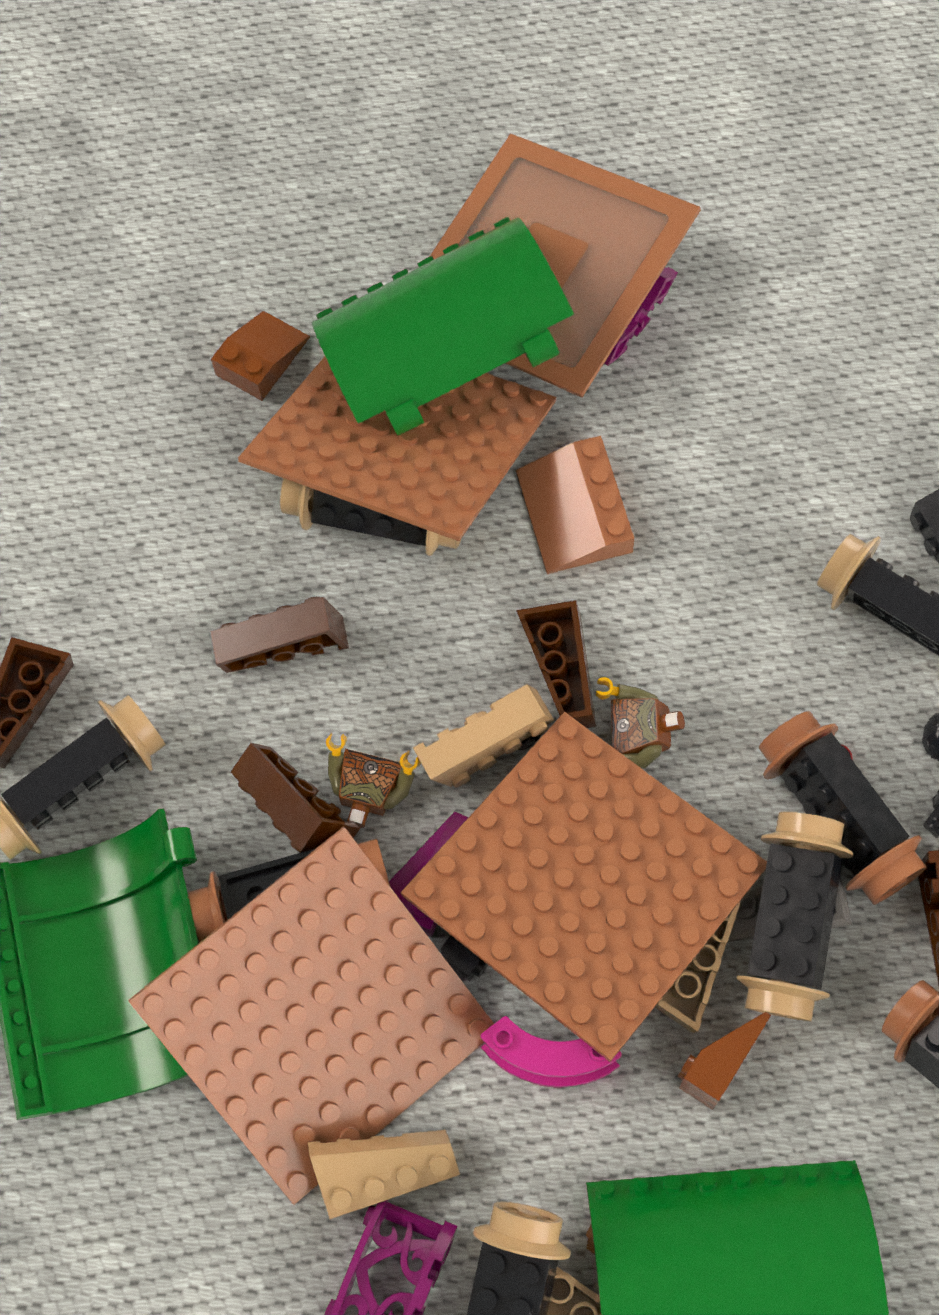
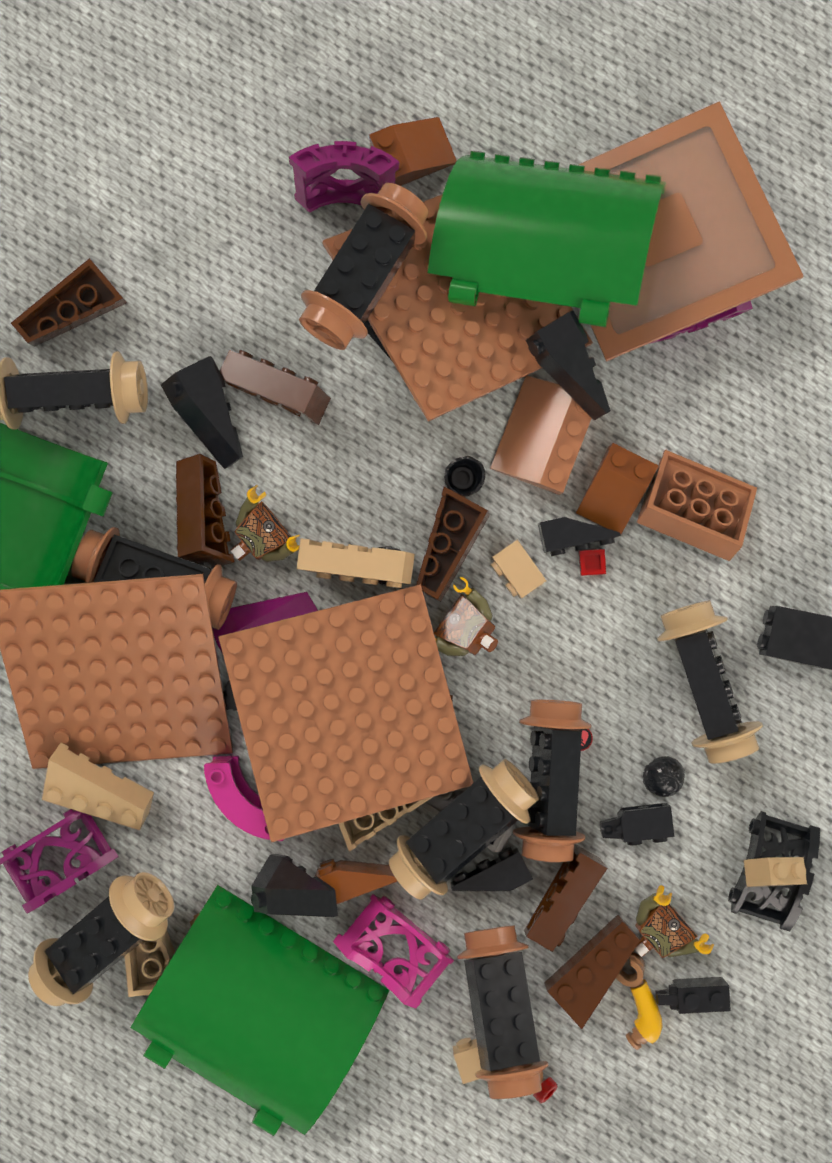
camera: 30 degrees right, 20 degrees up
(221, 700) = (200, 401): none -> black wedge
(240, 412) = (316, 164): none -> magenta fence
(296, 447) = (364, 266): none -> brick
(528, 589) = (464, 476): none -> black hair
(544, 413) = (563, 355): none -> black wedge
(647, 642) = (517, 569): none -> tan piece
(666, 1112) = (289, 890): none -> black wedge
(669, 575) = (566, 533): none -> black slope
(681, 506) = (616, 488): none -> dark orange slope
(713, 589) = (592, 562): none -> red tile
(769, 471) = (698, 506): none -> nougat slope
(784, 1131) = (355, 949): none -> dark pink fence
(871, 945) = (500, 874): none -> black slope

